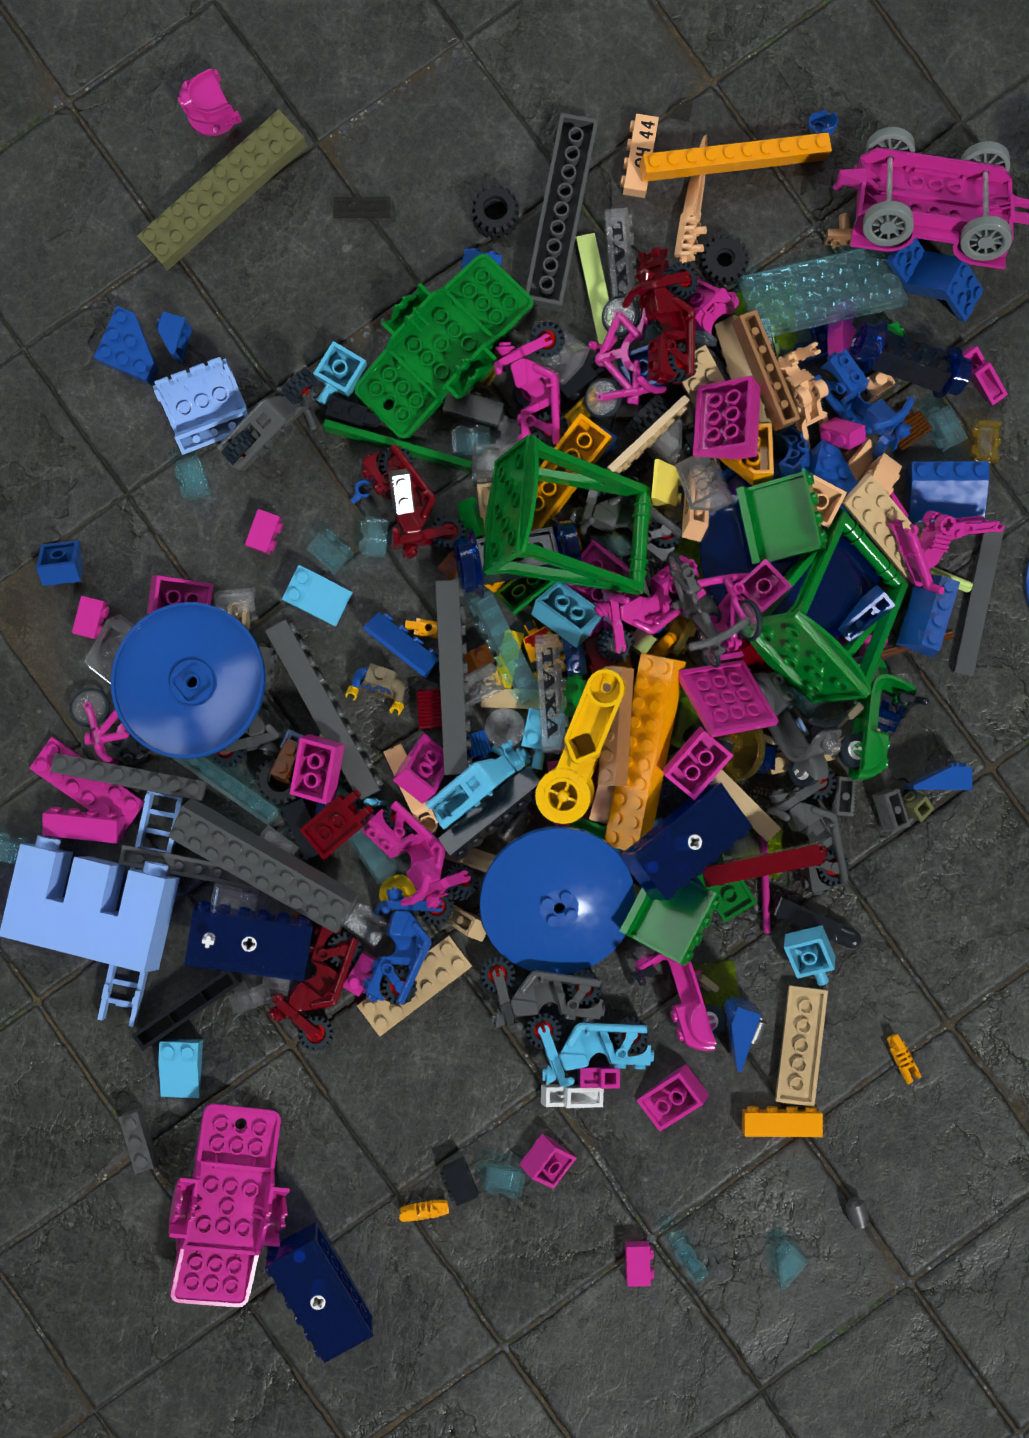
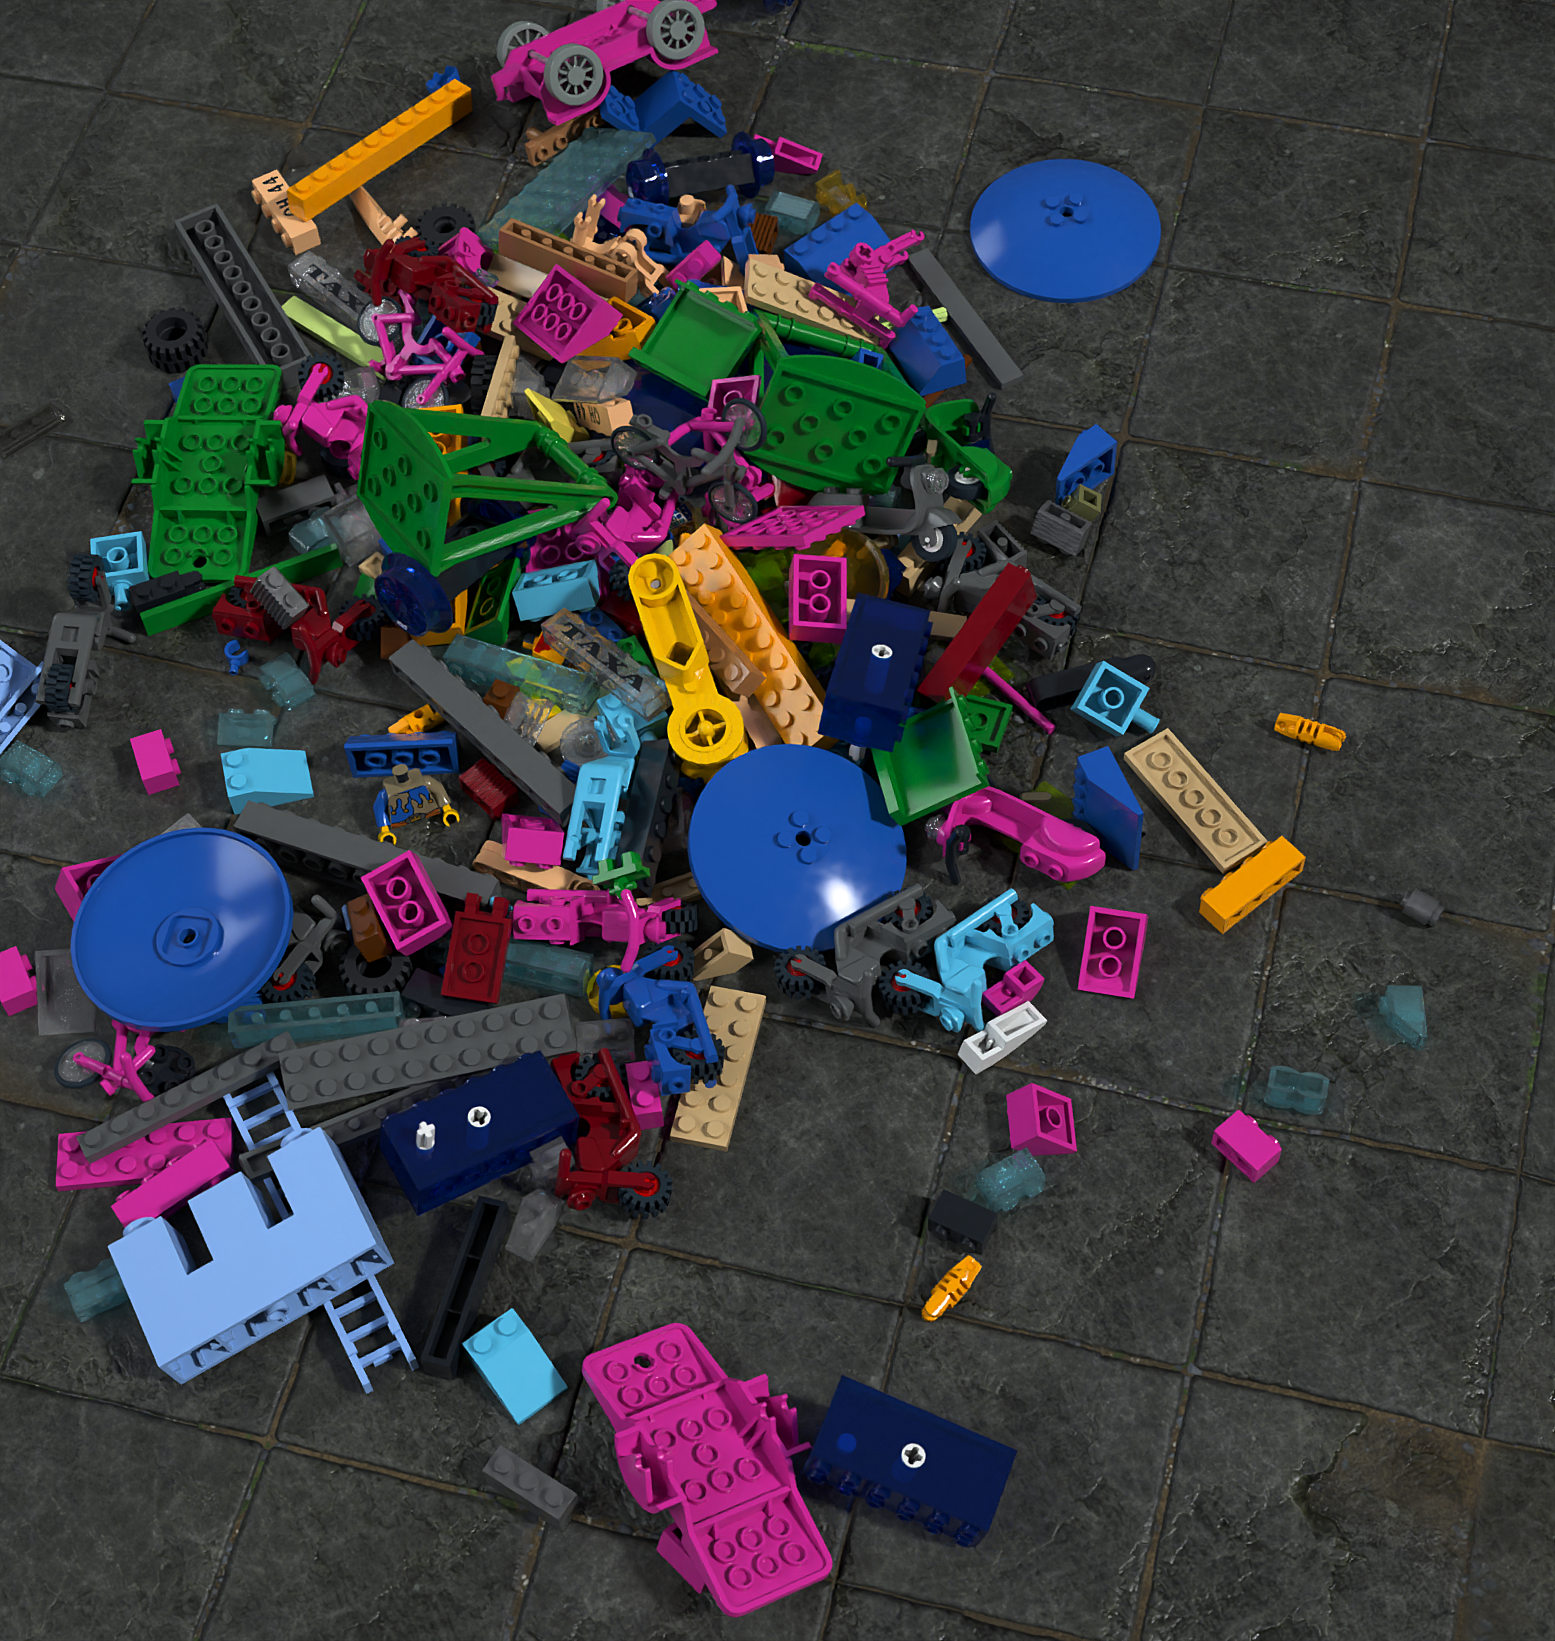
camera: 35 degrees left, 30 degrees down
(442, 849) = (620, 878): none -> green hips

